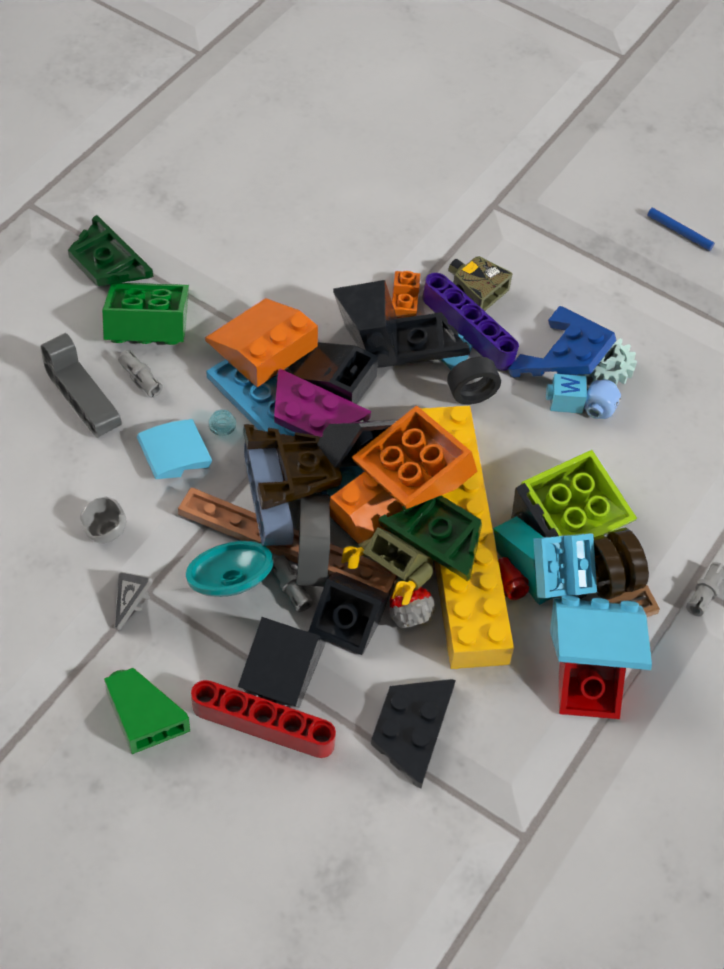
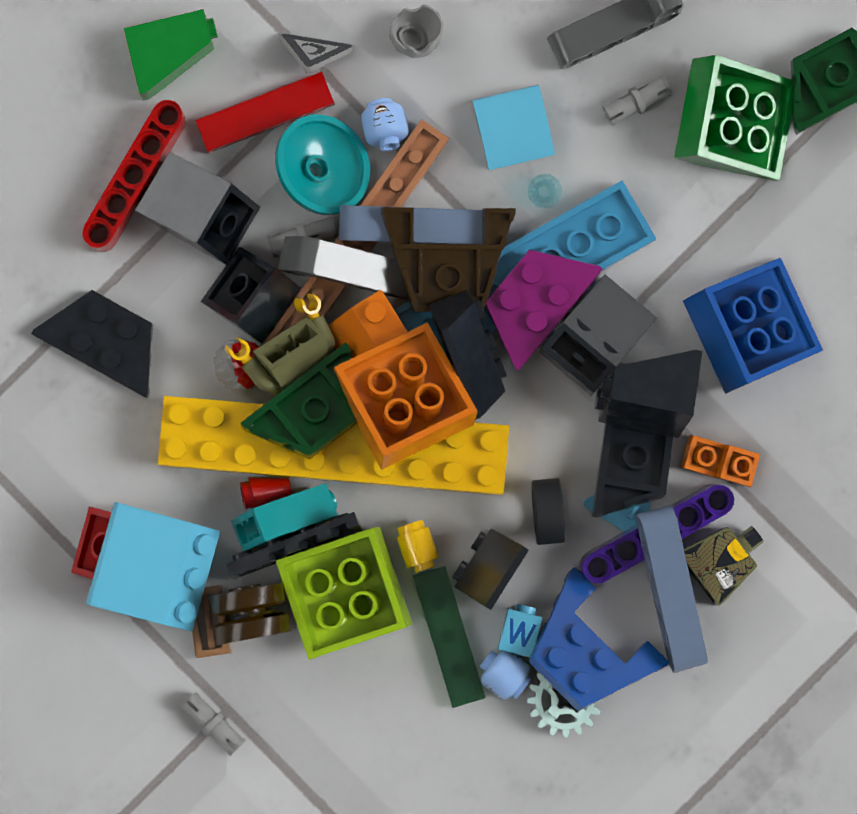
camera: 105 degrees right, 30 degrees up
(186, 534) = (384, 124): none -> light blue head
(188, 629) = (265, 112): none -> red tile
(265, 340) = (655, 254): orange slope -> none
(303, 281) = (752, 325): none -> blue slope
(508, 299) = (671, 588): none -> sand blue beam
(522, 466) = (417, 546): none -> yellow brick
(530, 401) = (490, 567): none -> black slope
(565, 565) = (243, 546): medium azure slope -> none
(590, 437) = (449, 636): none -> clear green tile

